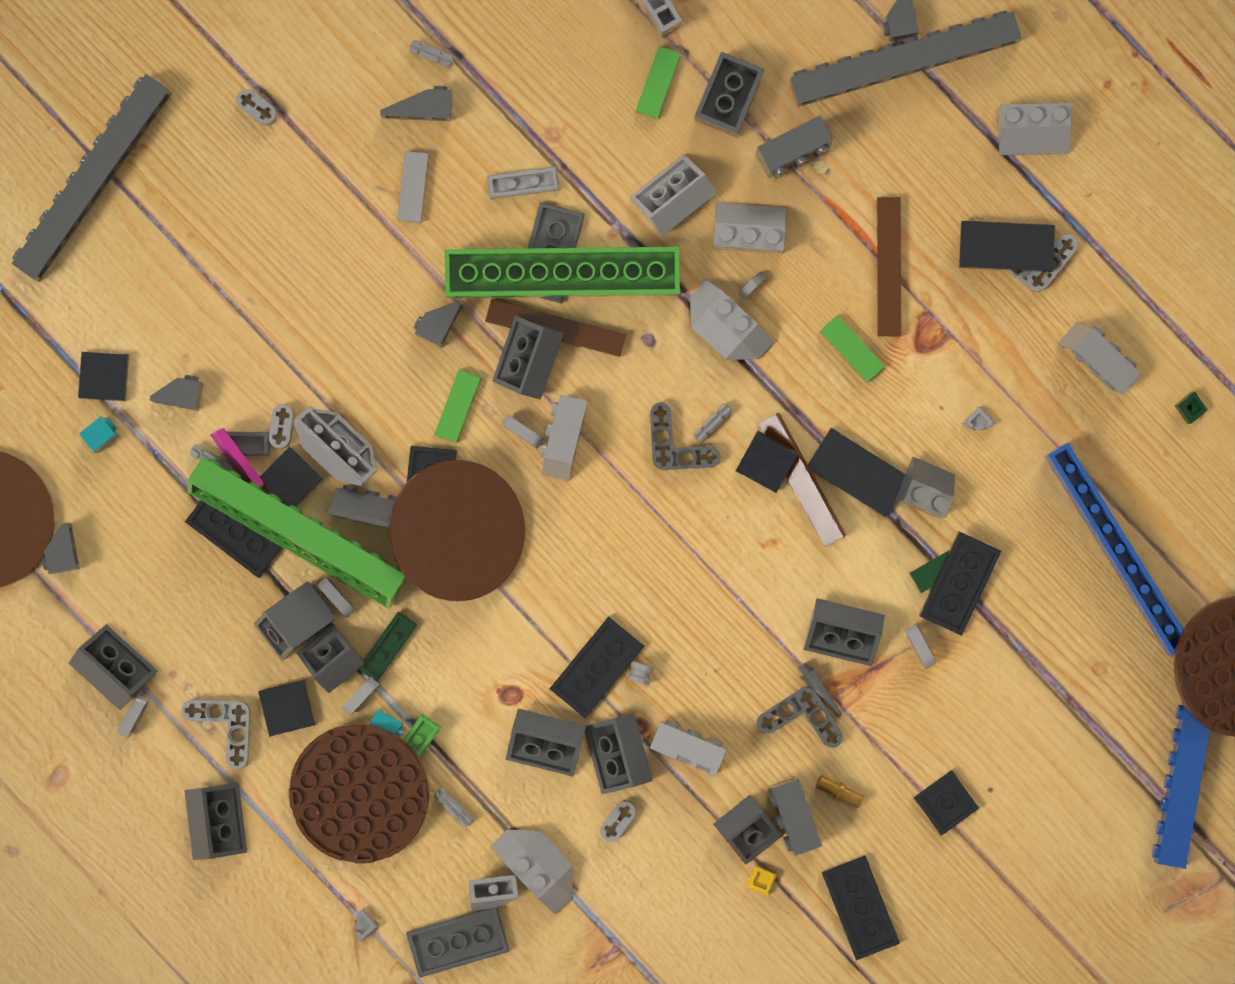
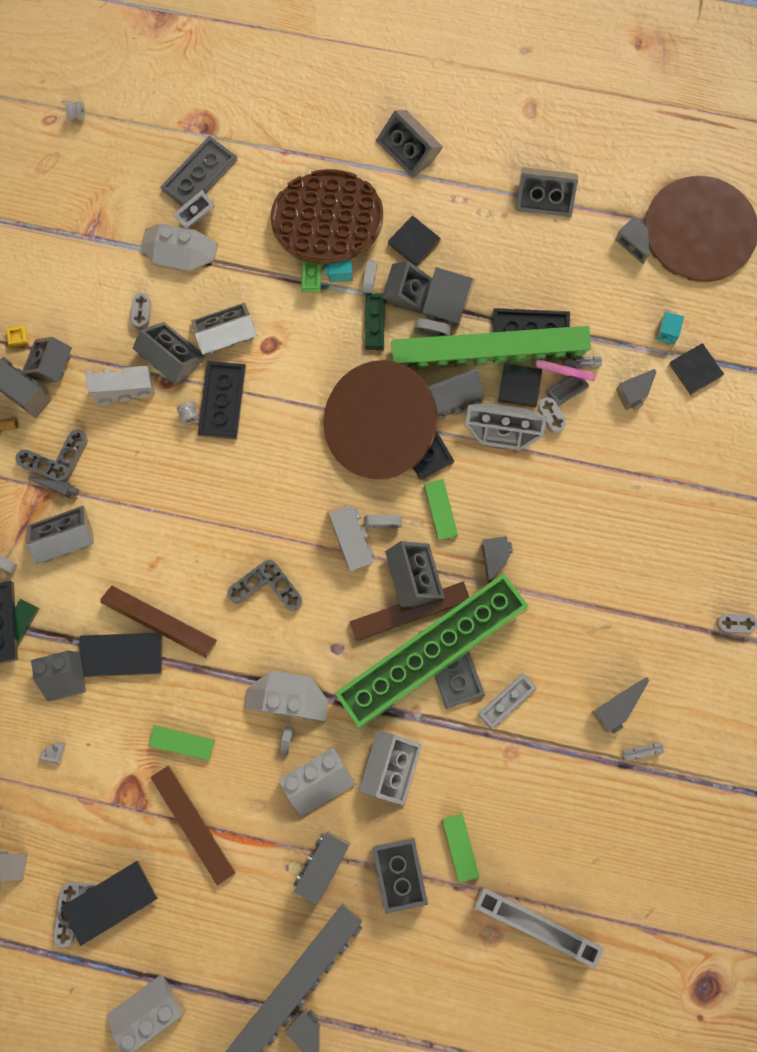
camera: 145 degrees right, 10 degrees down
(133, 716) = (510, 171): light grey beam -> none
(227, 716) = (447, 211): light grey beam -> none
(364, 925) = (267, 145): light grey tile -> none
(413, 187) = (583, 643): light grey tile -> none
(453, 807) = (258, 250): light grey axle -> none
(712, 422) = (250, 619): light grey axle -> none
(767, 461) = (191, 616): black tile -> none

